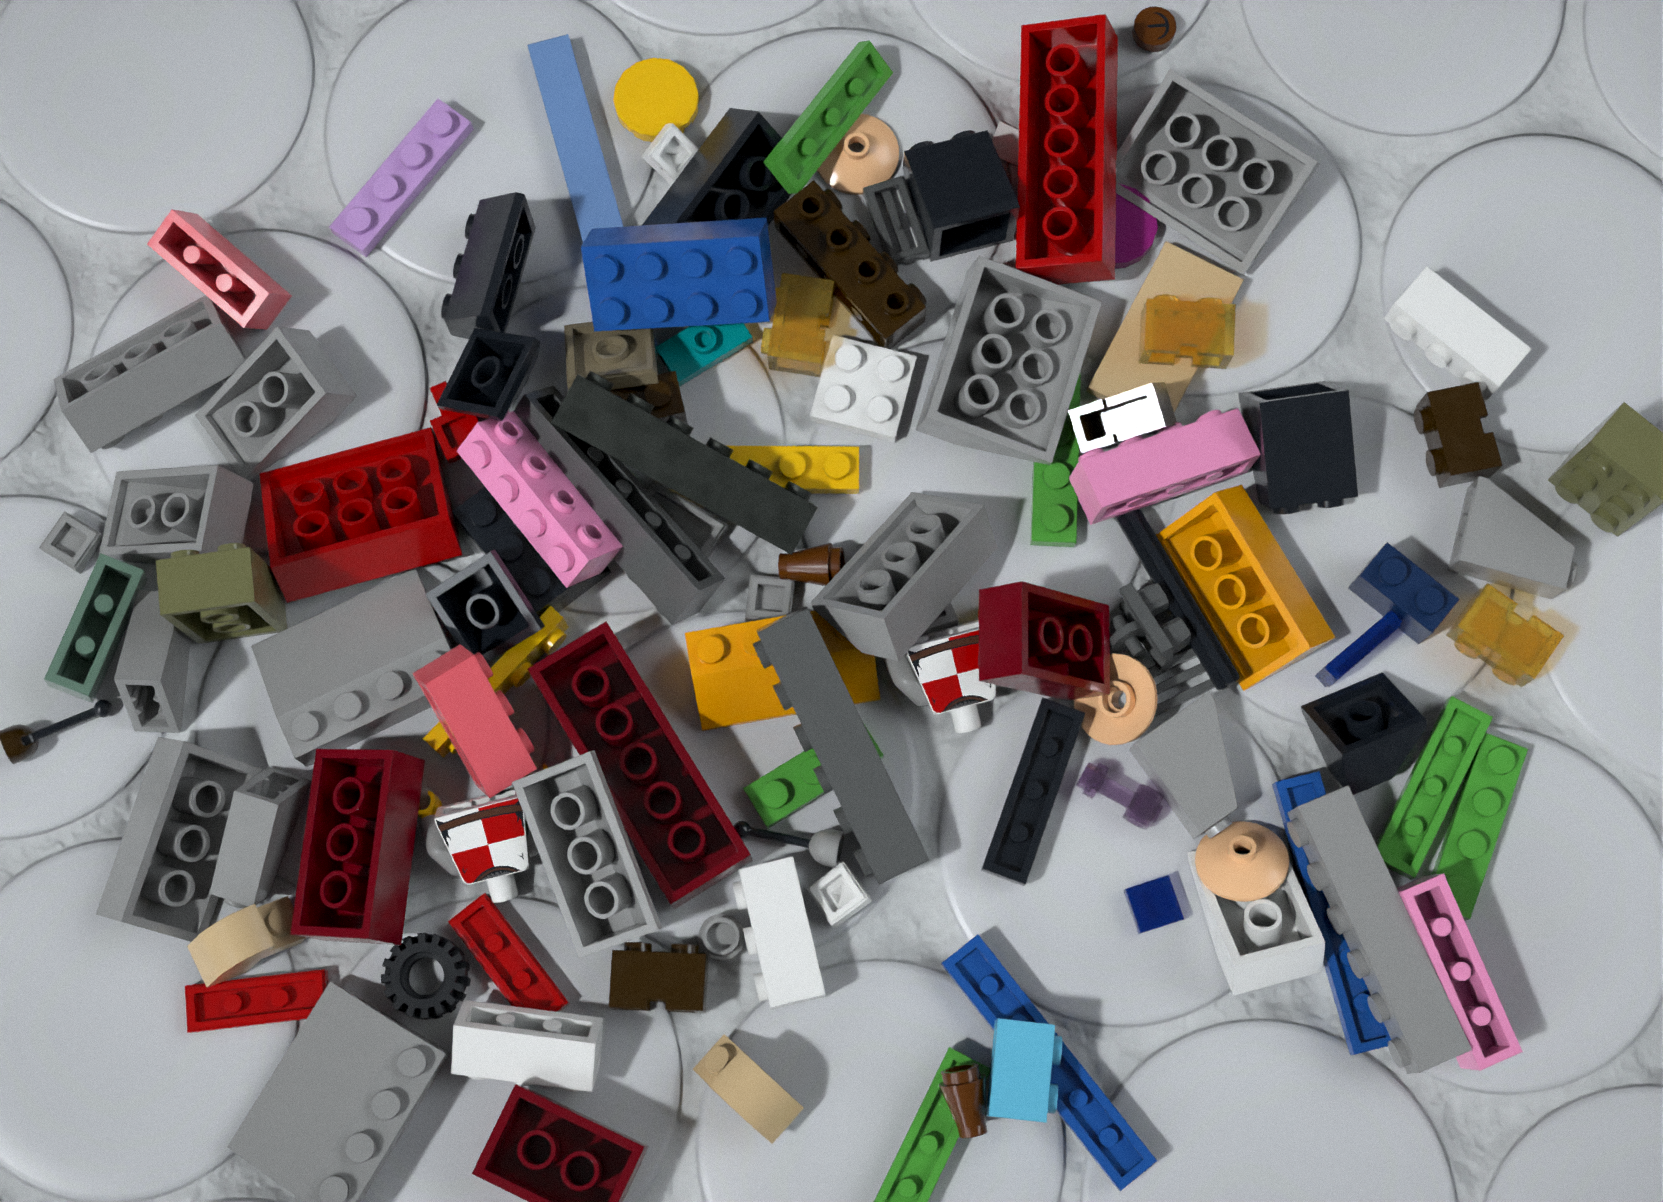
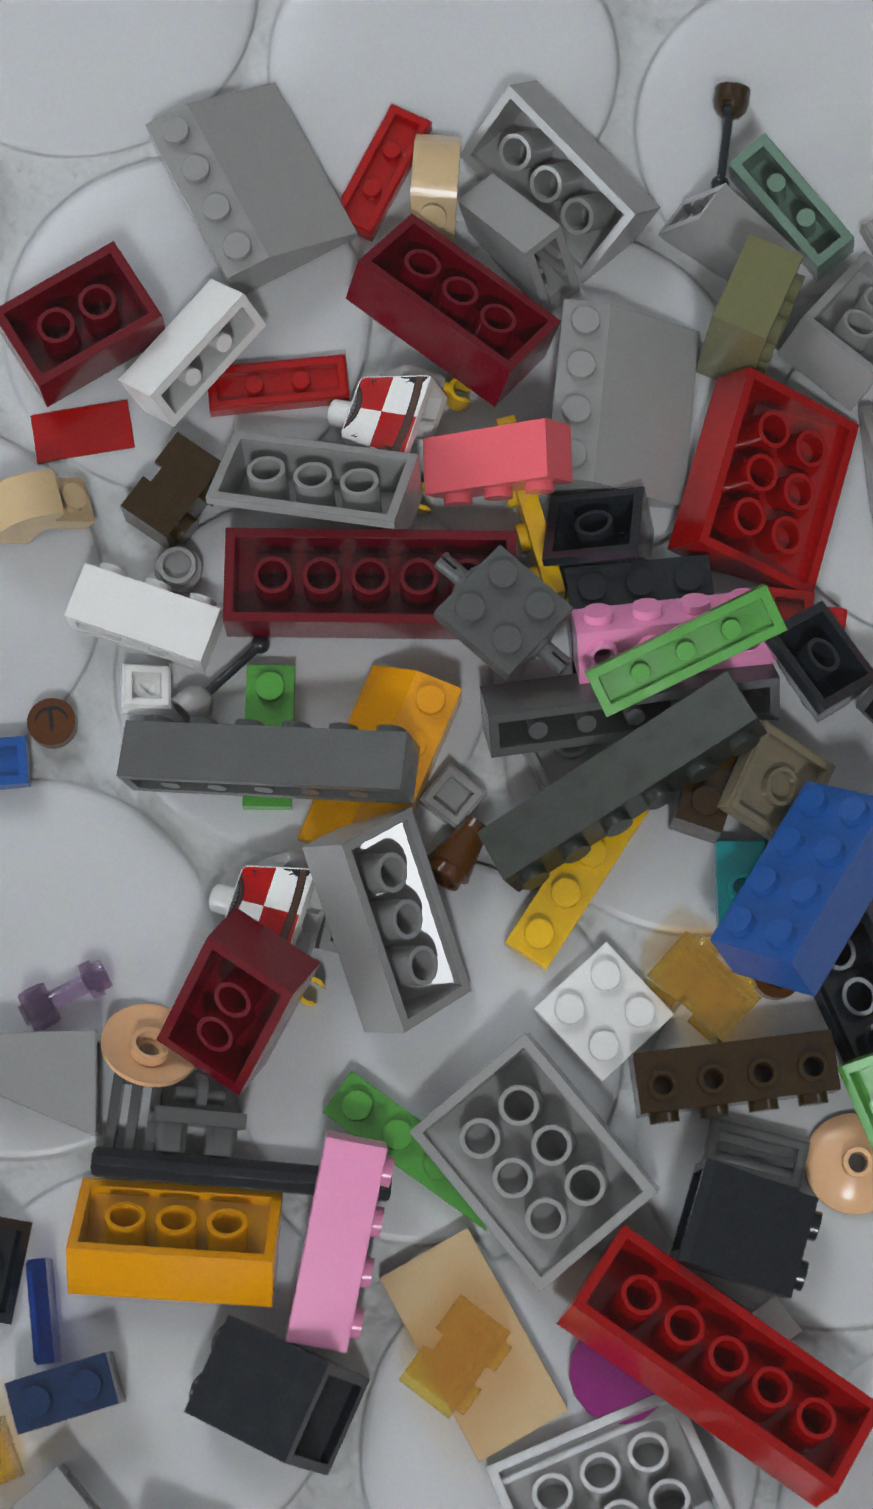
camera: 120 degrees right, 0 degrees up
(399, 966) = (302, 285): black tyre -> none
(552, 465) = (685, 650): none -> bright green plate
(605, 632) = (503, 613): none -> dark grey plate
(650, 1103) = (82, 431): none -> red sticker
(914, 953) = (52, 723): none -> reddish brown tile
(1033, 792) = (119, 916): black plate -> none
(1122, 417) = (408, 1230): brick -> none

